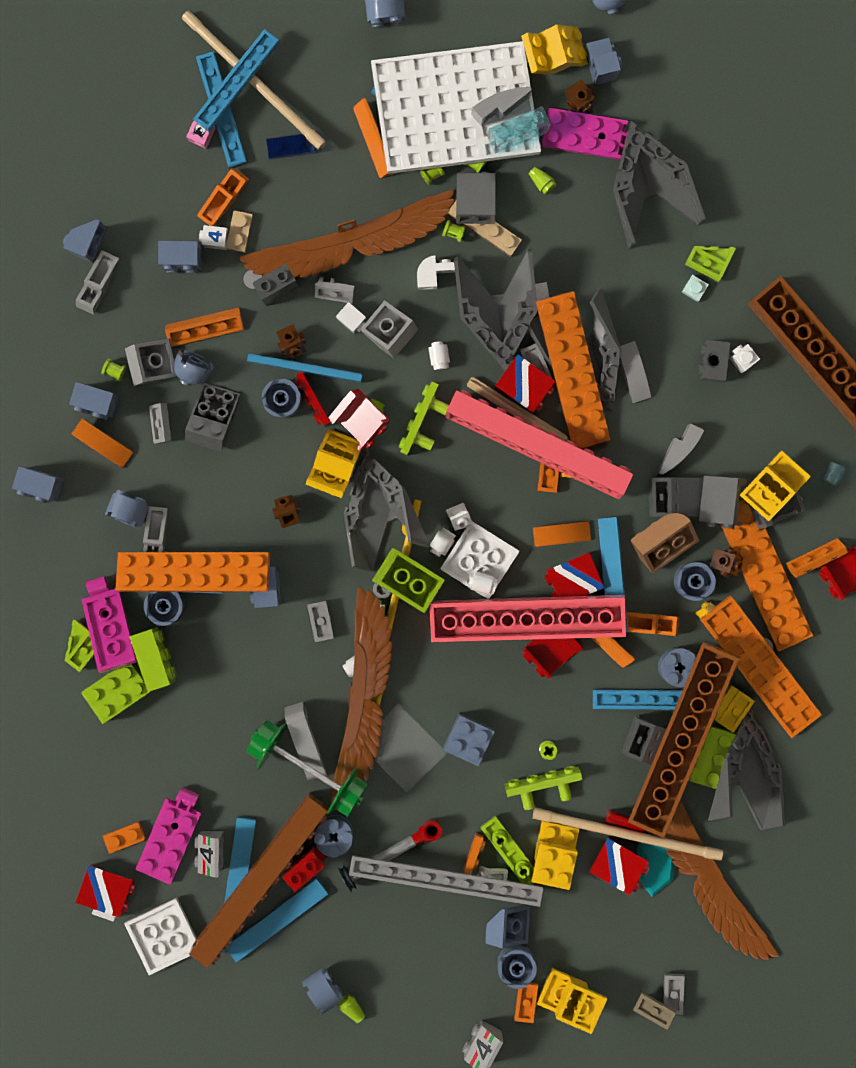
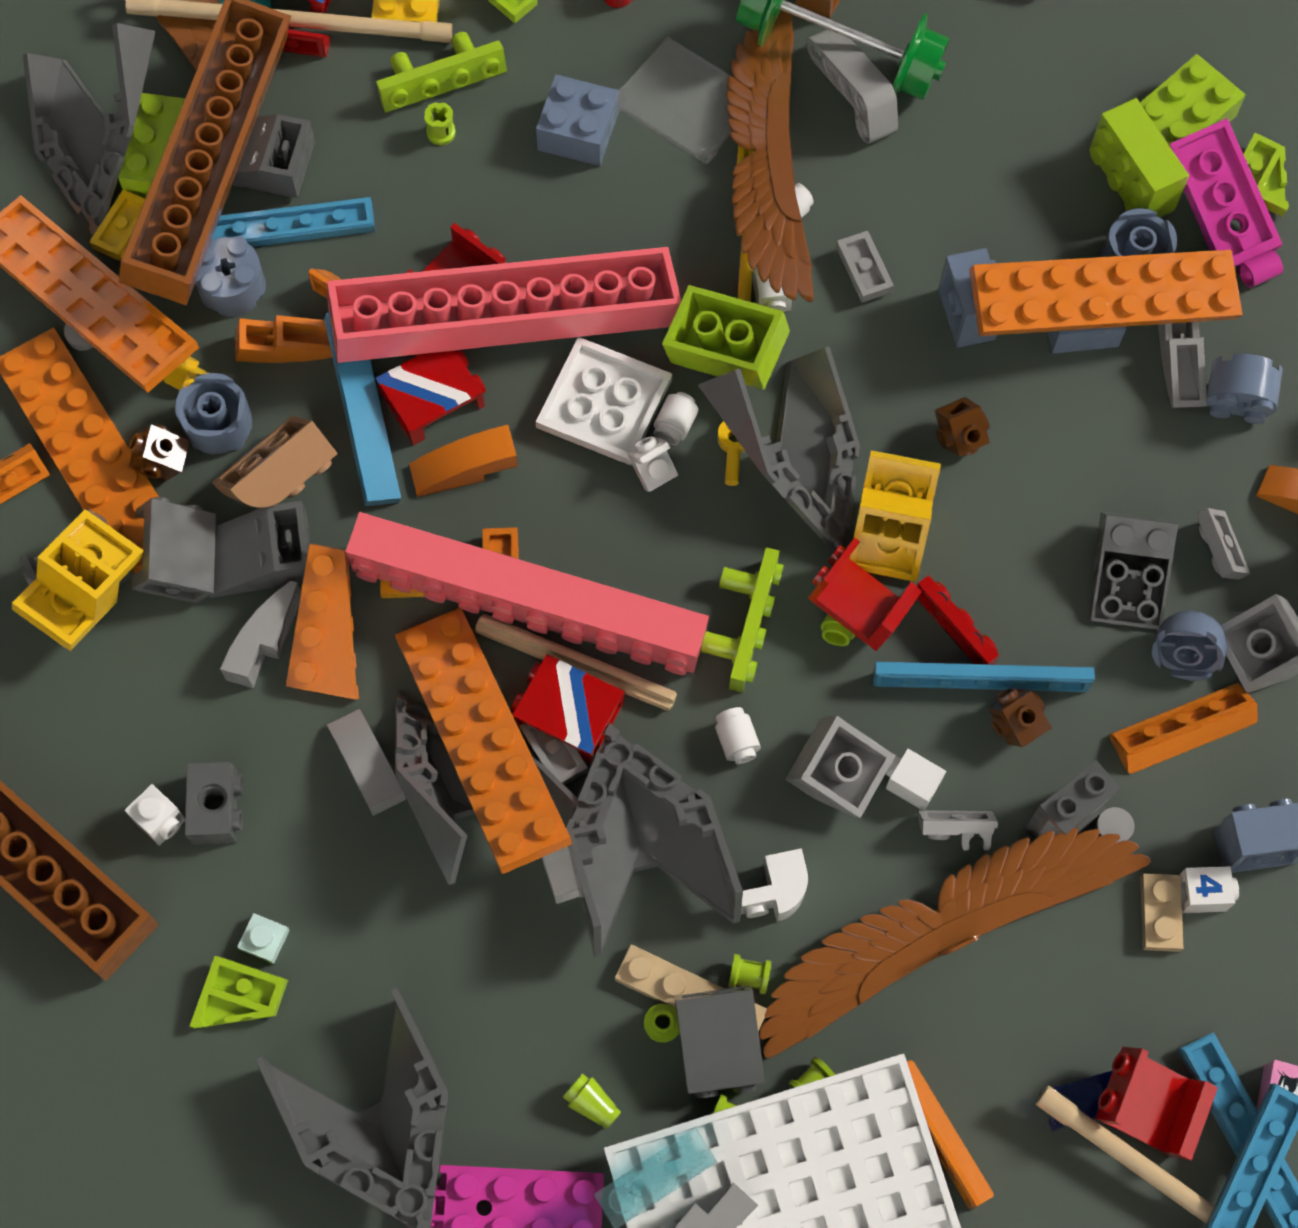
camera: 175 degrees right, 20 degrees down
(223, 197) = (1208, 972): orange slope -> none
(266, 134) = (1155, 1104): none -> red panel
(271, 402) = (1019, 594): sand blue brick -> none
(482, 583) = (593, 354): white brick -> none
(501, 220) = (656, 1033): none -> lime plate
(647, 444) = (323, 635): none -> orange wing

